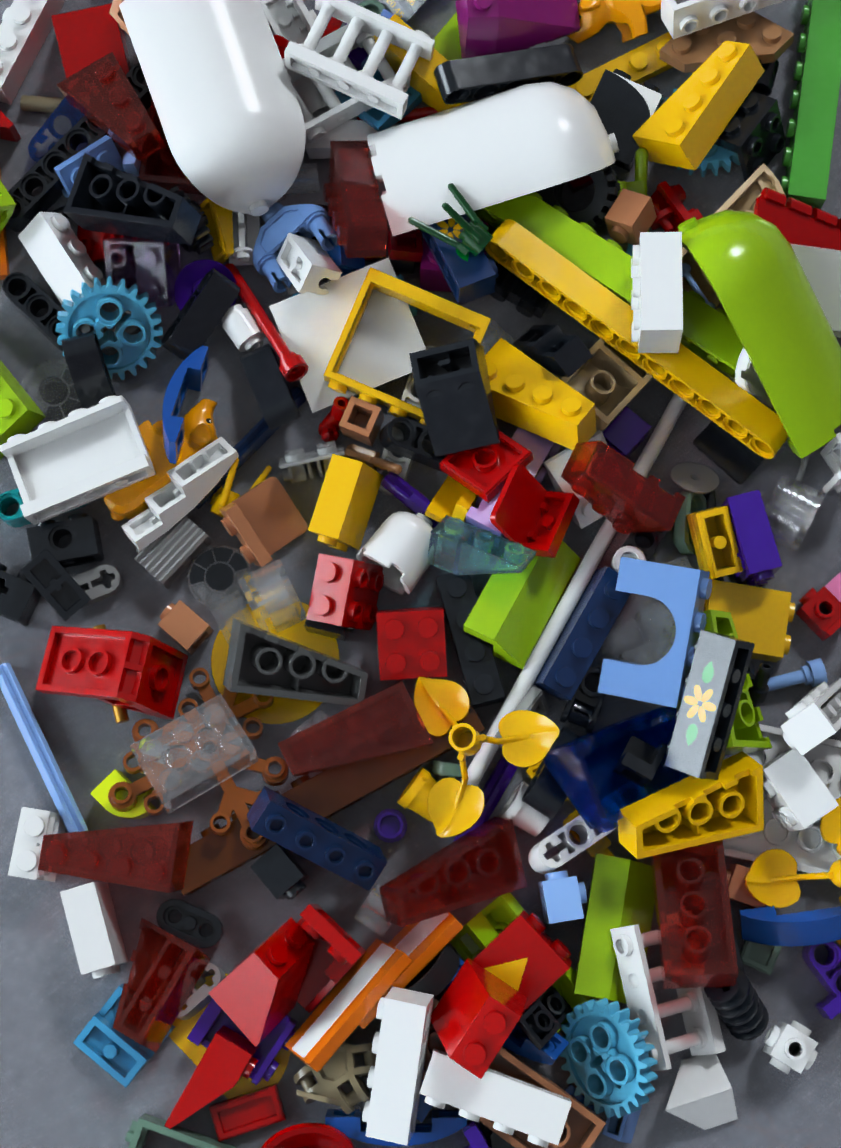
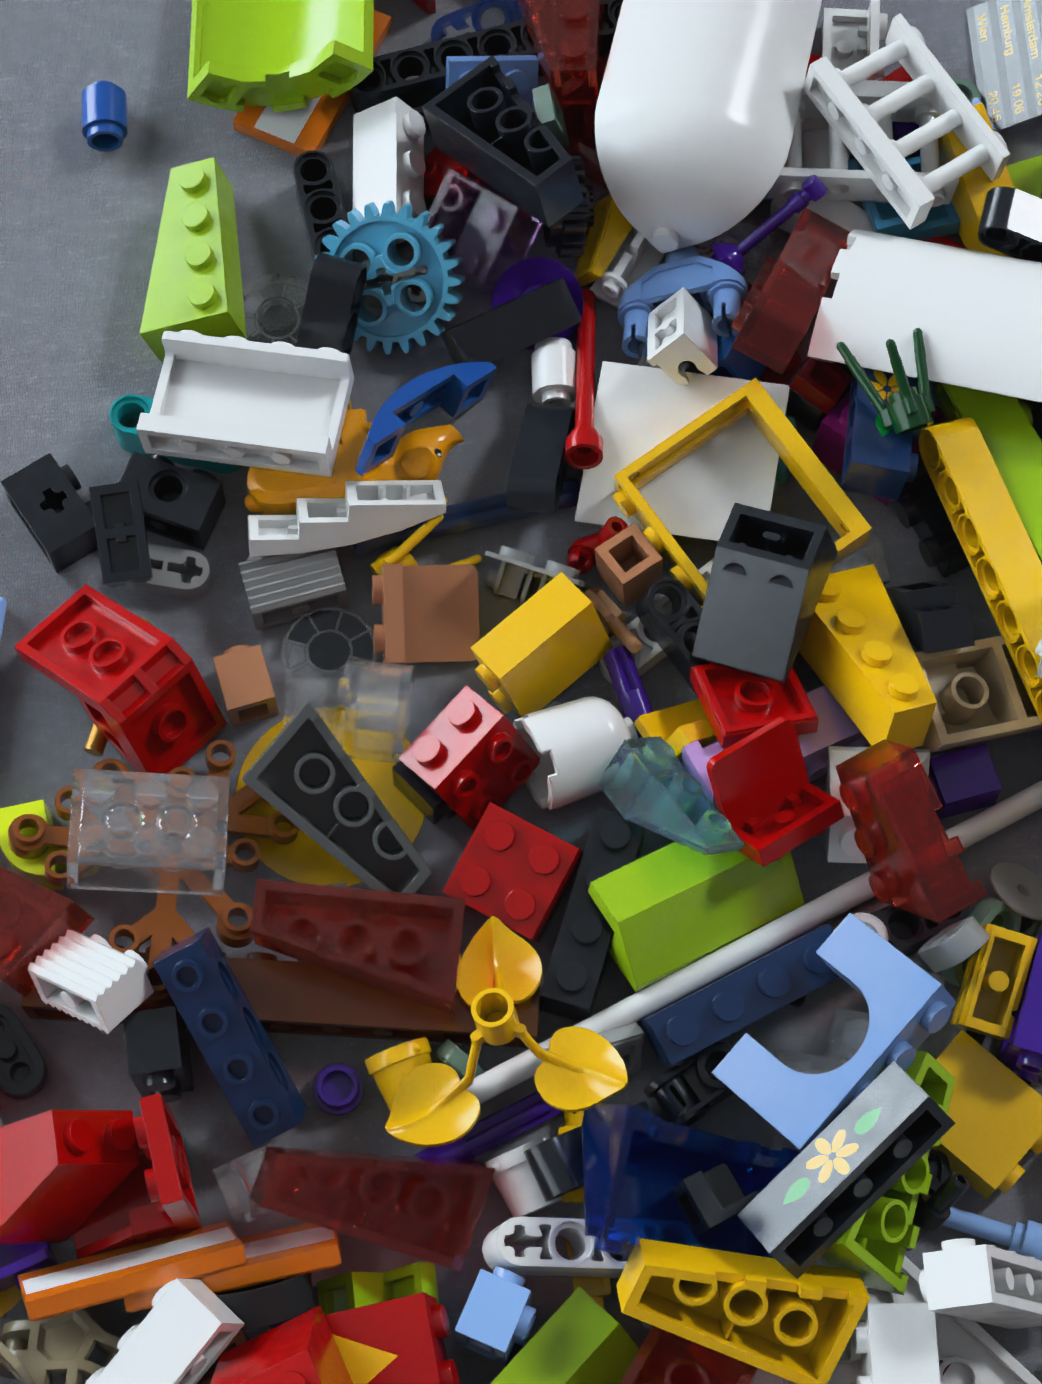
camera: 30 degrees right, 10 degrees down
(142, 169) = (550, 113): none -> sand green plate
(219, 858) = (91, 979): none -> white brick
(302, 195) = (733, 255): none -> dark purple piece
(683, 536) = (953, 944): none -> light grey beam

